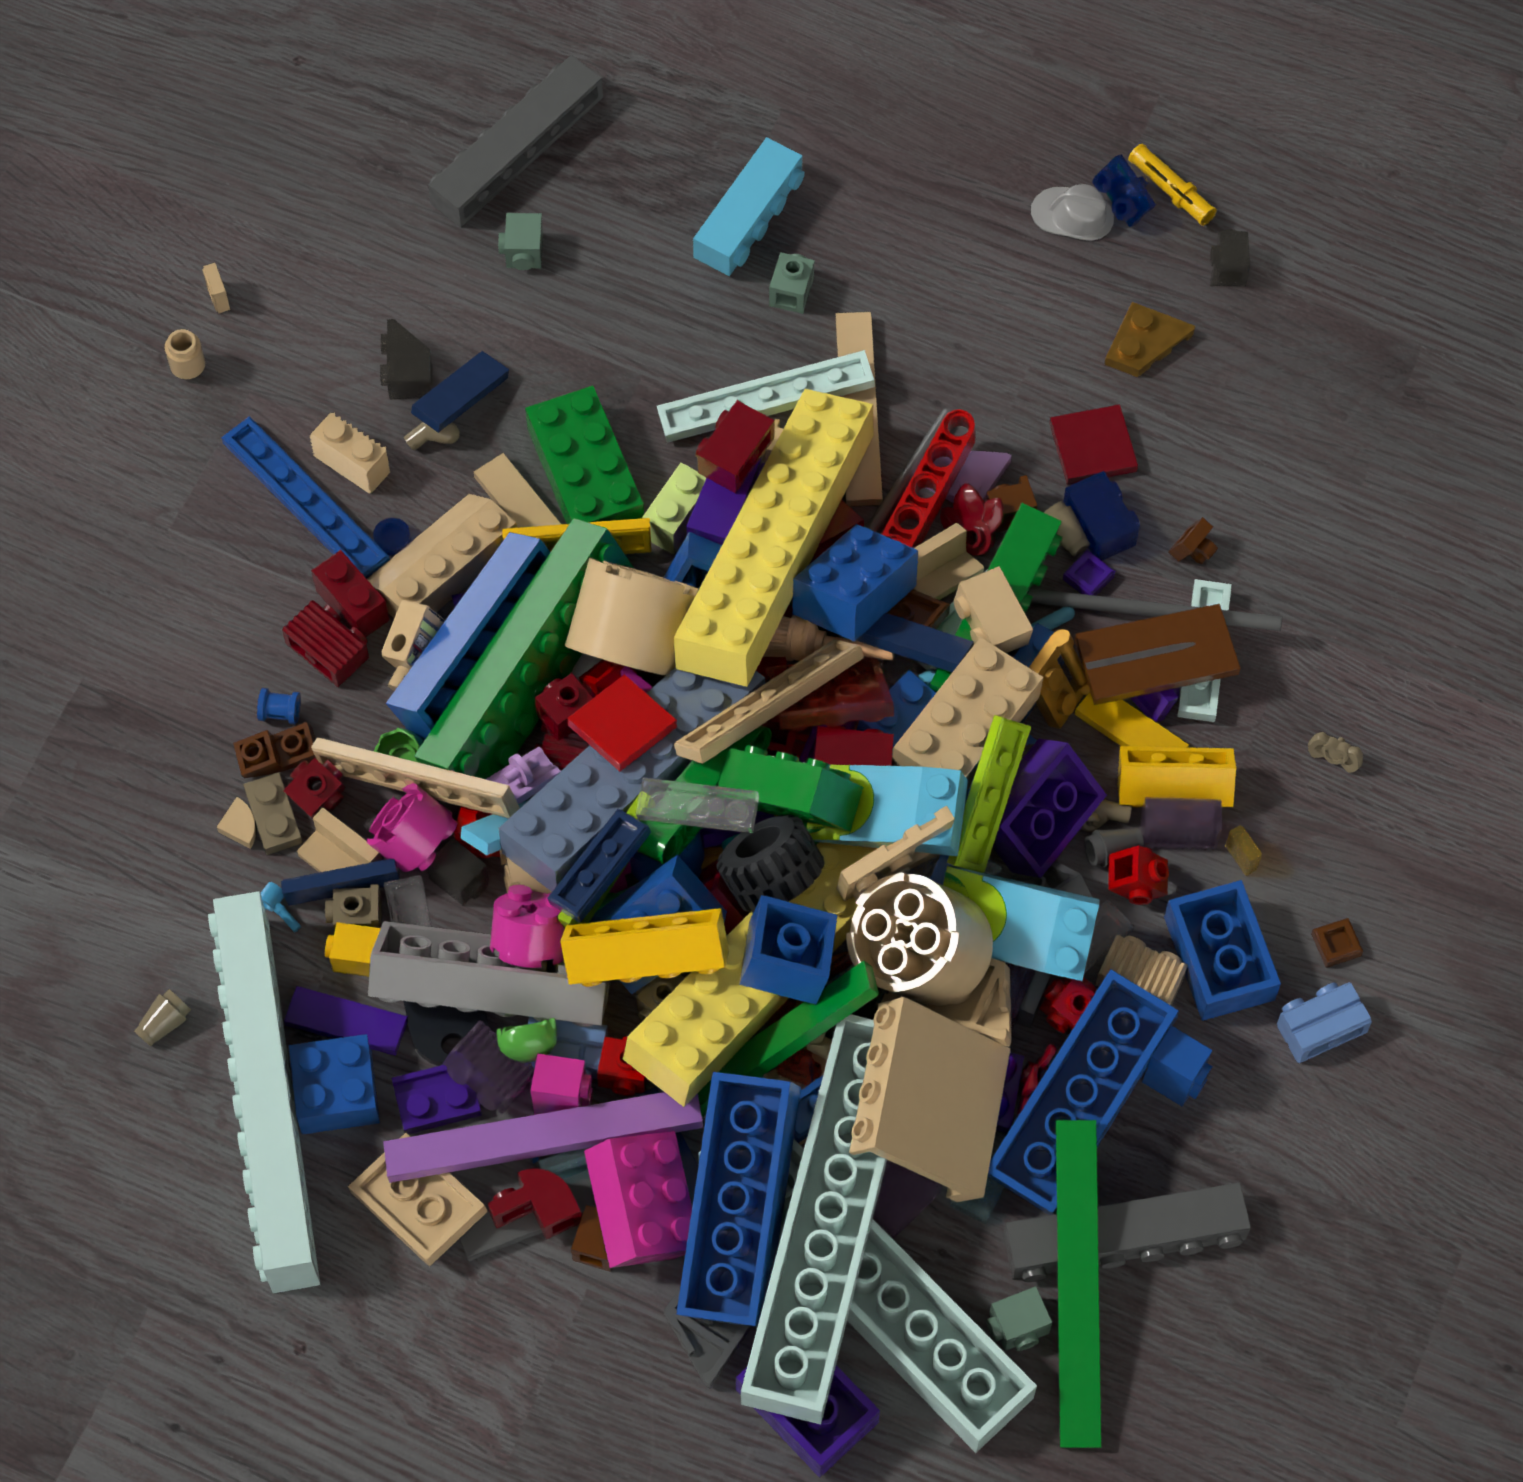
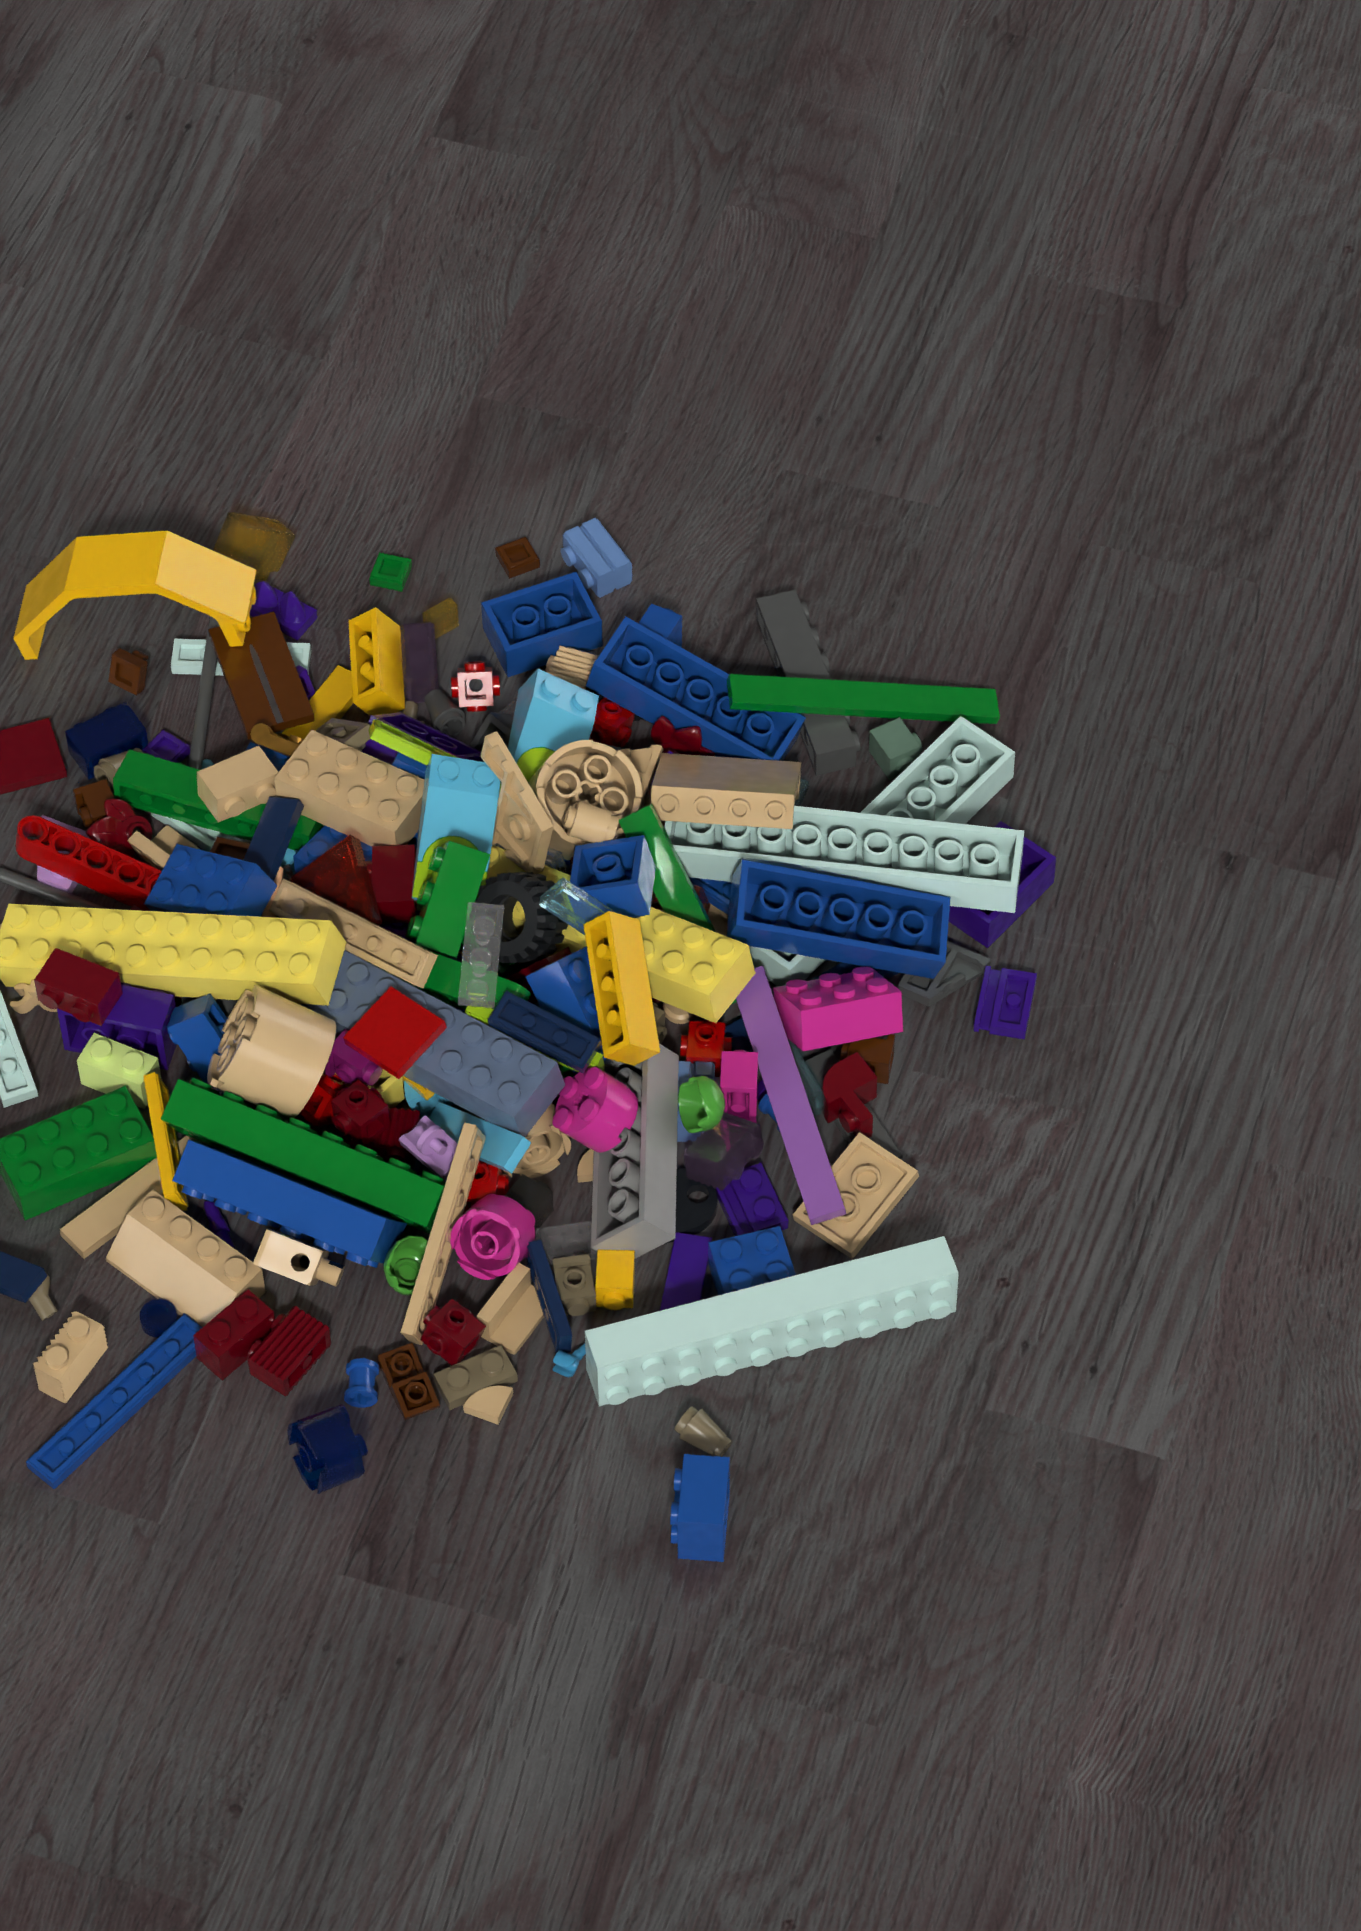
camera: 95 degrees left, 10 degrees down
(59, 998) = (701, 1507): none -> blue brick
(197, 663) = (327, 1449): none -> clear blue brick
(654, 1395) = (1005, 1002): none -> dark purple plate
(746, 908) = (572, 904): none -> clear light blue tile
(856, 928) = (590, 823): none -> tan brick
(1053, 718) = (347, 732): none -> dark tan plate
(1250, 538) = (139, 565): none -> yellow panel
(1273, 694) = (290, 612): none -> dark purple tile
(1323, 809) = (390, 572): none -> green tile
(1336, 751) = (336, 560): dark tan piece -> none
(1349, 649) = (255, 542): none -> clear yellow piece

